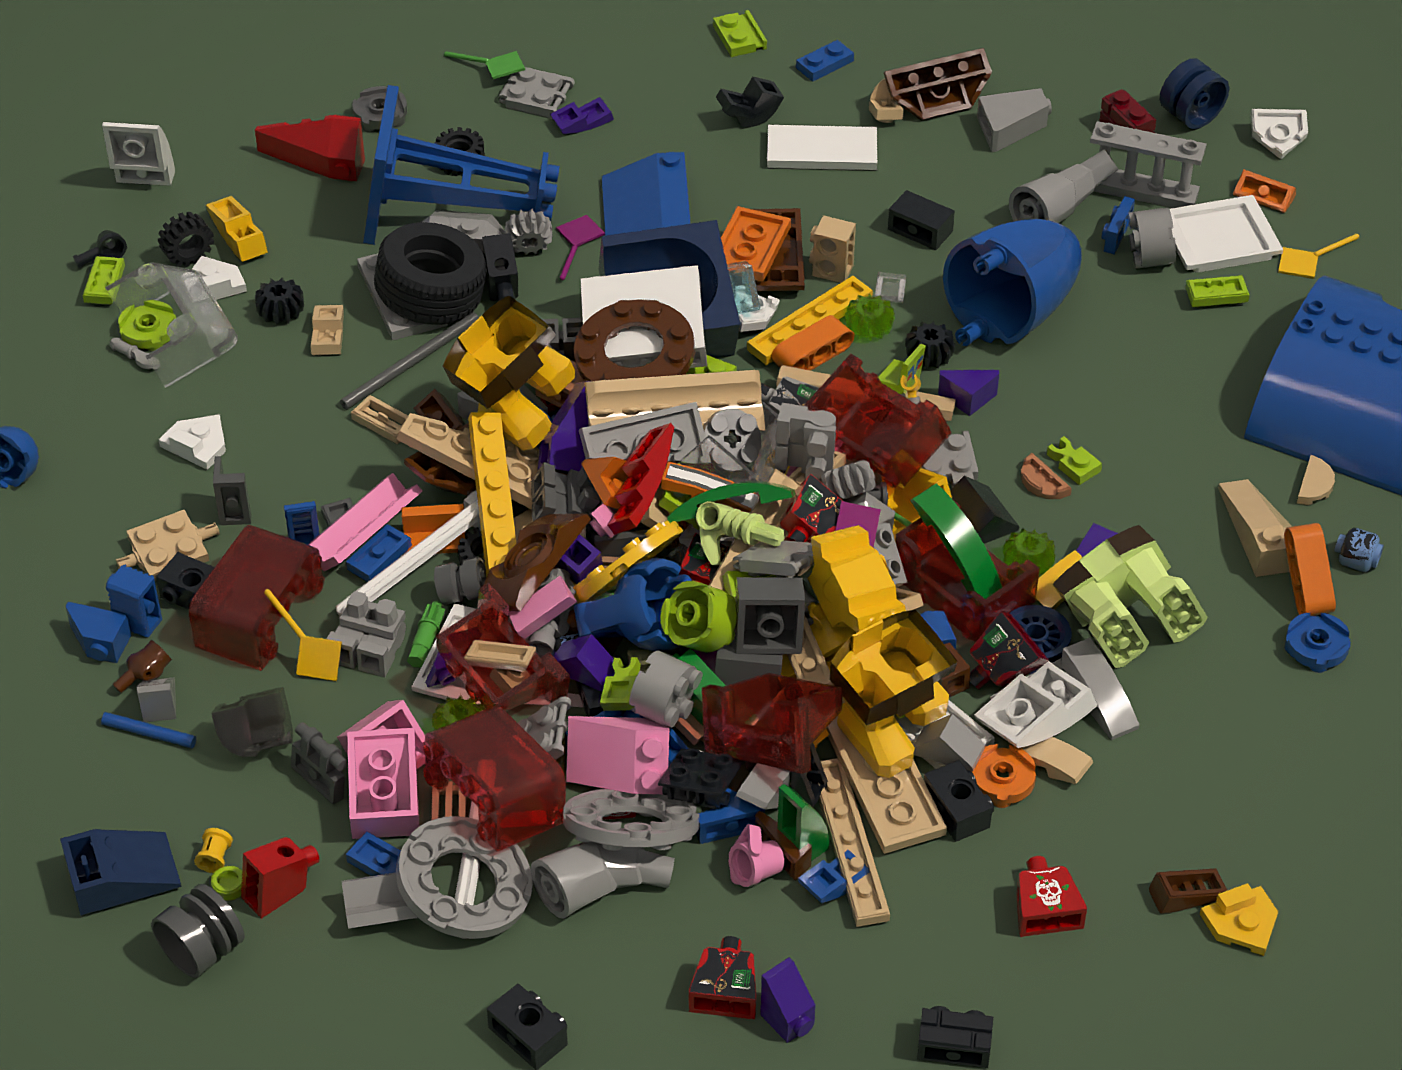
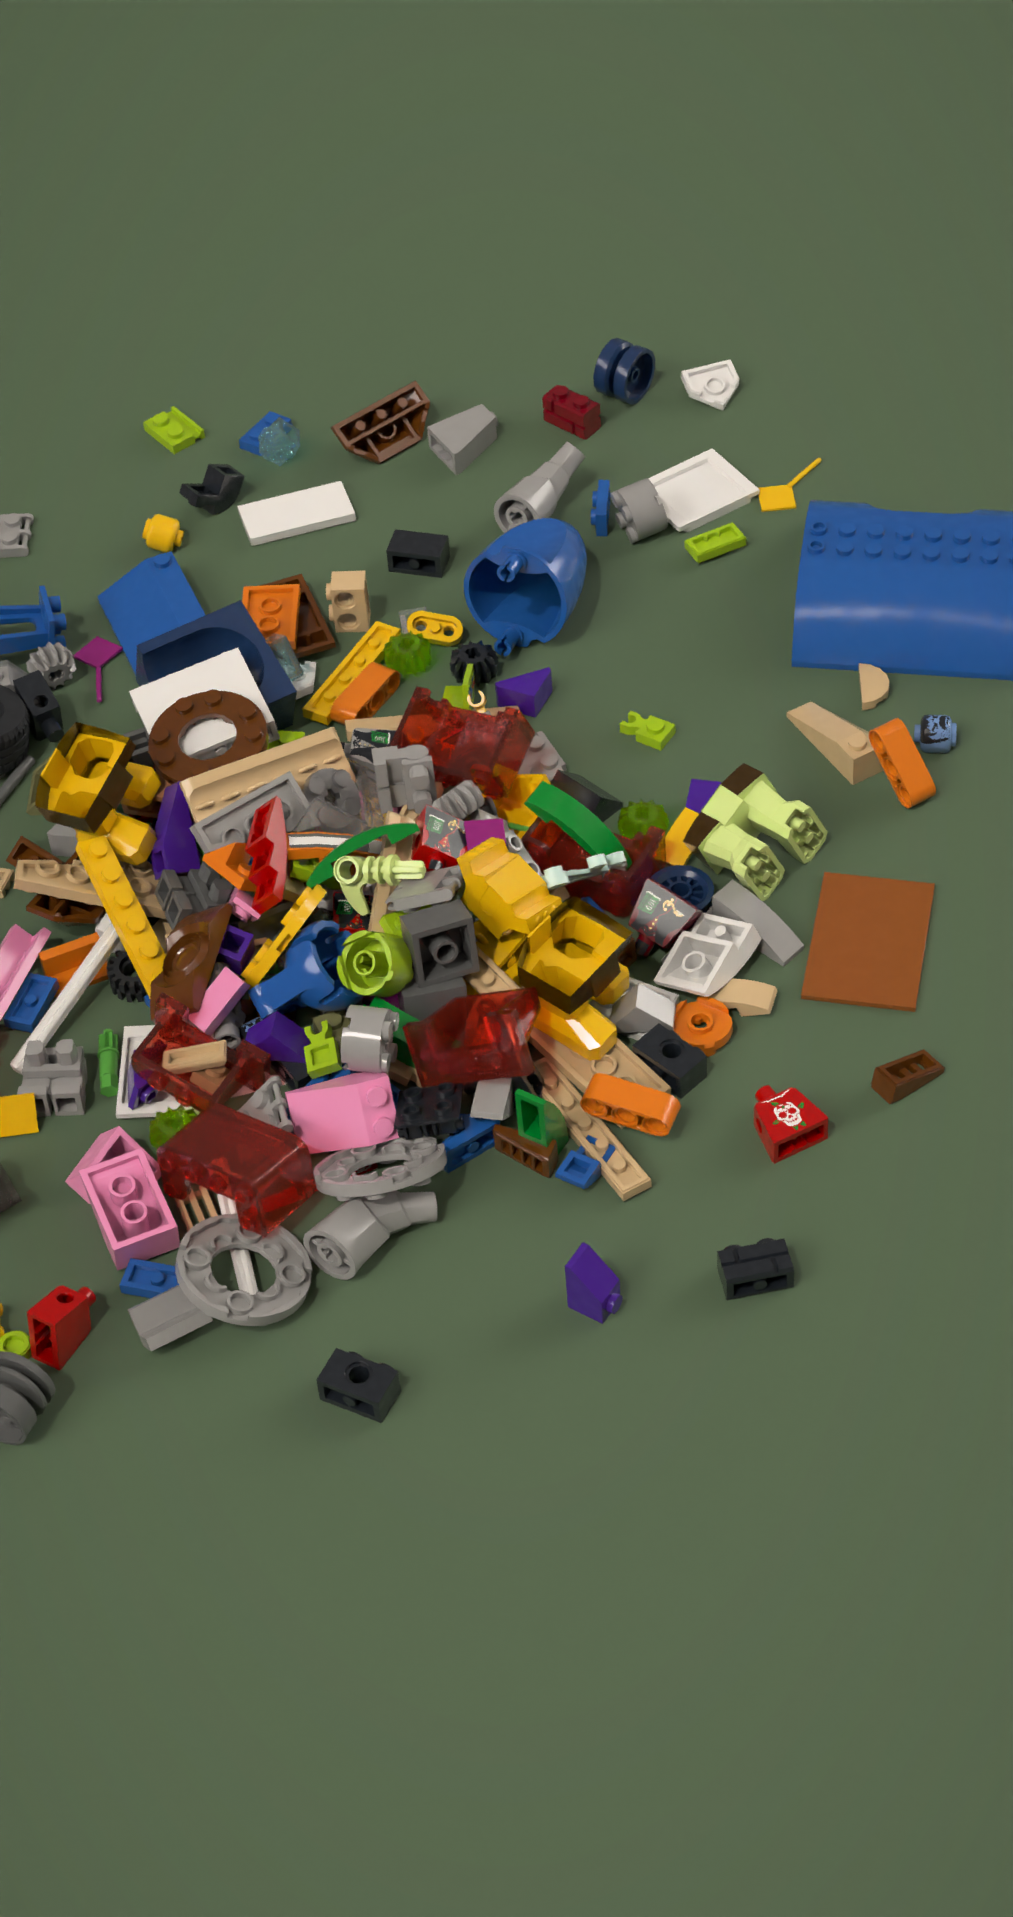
camera: 15 degrees left, 0 degrees up
(319, 763) = (58, 1217): dark grey plate -> none
(457, 582) = (123, 1004): dark grey wheel -> none
(589, 116) = (51, 550): dark purple slope -> none
(686, 132) = (162, 533): none -> yellow head
(724, 981) = (527, 1286): torso -> none
(754, 859) = (506, 1169): bright pink piece -> none
(831, 72) = (279, 441): none -> clear light blue brick
(882, 106) = (339, 459): tan plate -> none
(897, 833) = (630, 1104): none -> orange beam
(908, 298) = (435, 626): none -> yellow plate
(953, 583) = (597, 864): none -> light aqua plant
(1042, 480) = (625, 755): nougat tile -> none
(1143, 187) = (617, 468): light grey fence -> none
(1206, 741) = (868, 942): none -> dark orange piece
(1242, 917) = (964, 1084): yellow plate -> none
(1265, 190) = (725, 442): orange slope -> none
(1317, 655) = (934, 837): blue plate -> none

